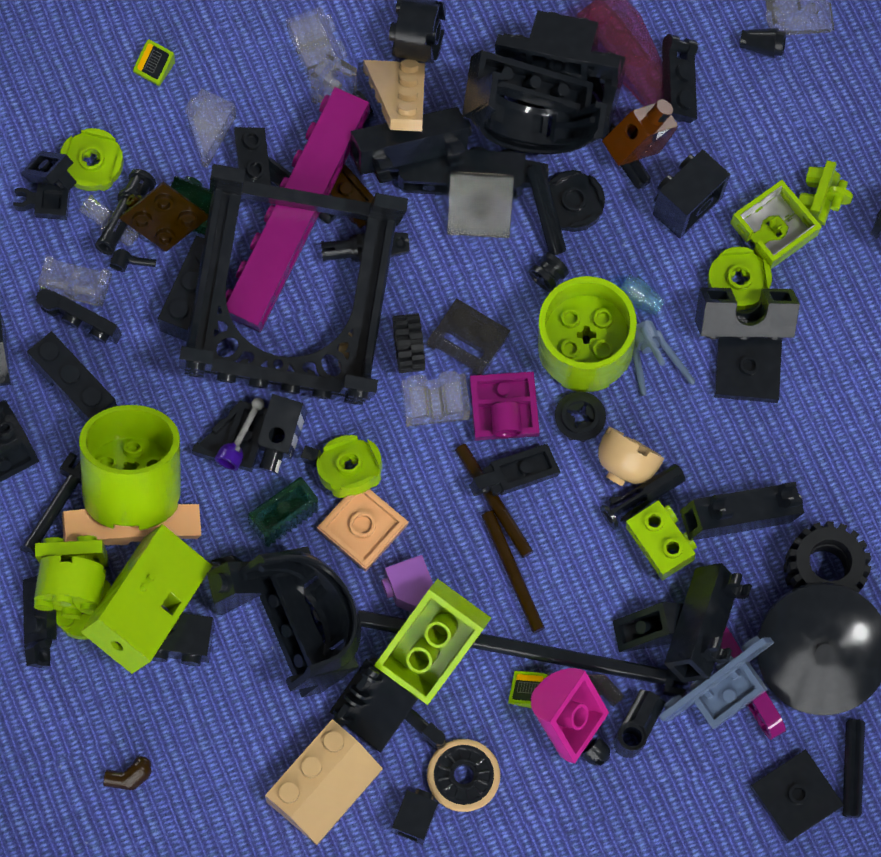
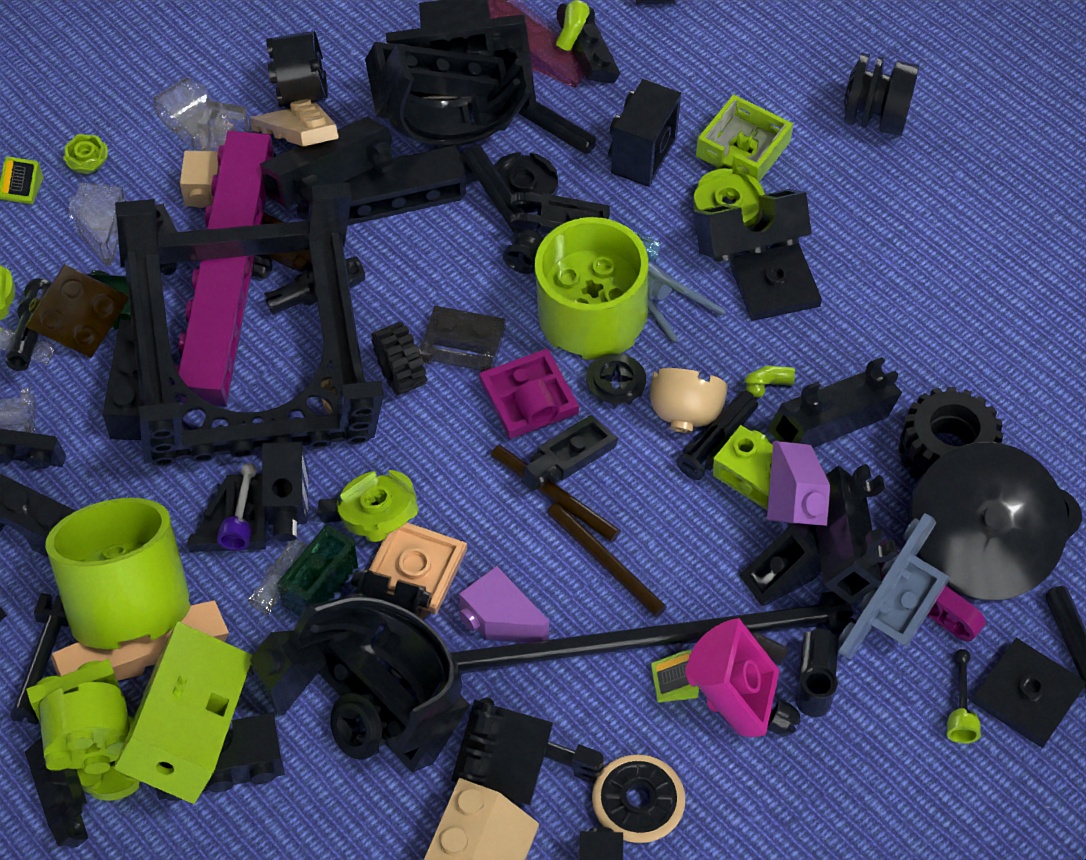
camera: 15 degrees left, 15 degrees down
(122, 257) = (43, 375): black hand -> none
(213, 44) = (85, 153): none -> lime plate
(239, 512) = (267, 593): none -> clear axle
(264, 647) = (347, 731): none -> black gear
(302, 111) = (197, 177): none -> tan brick
(343, 558) = (406, 594): none -> black hinge
(432, 641) = (546, 651): lime brick -> none
(435, 399) = (449, 410): clear brick -> none
(480, 204) = (426, 207): clear smoke plate -> none
(592, 251) = (552, 211): none -> black hinge
(653, 130) = (572, 90): reddish brown torso -> none
(671, 61) = (574, 20): none -> lime arm
(679, 572) = (797, 485): none -> medium lavender slope
(703, 454) = (768, 374): none -> lime arm
(734, 803) = (963, 724): none -> lime hinge
(830, 191) = (784, 95): lime hips -> none

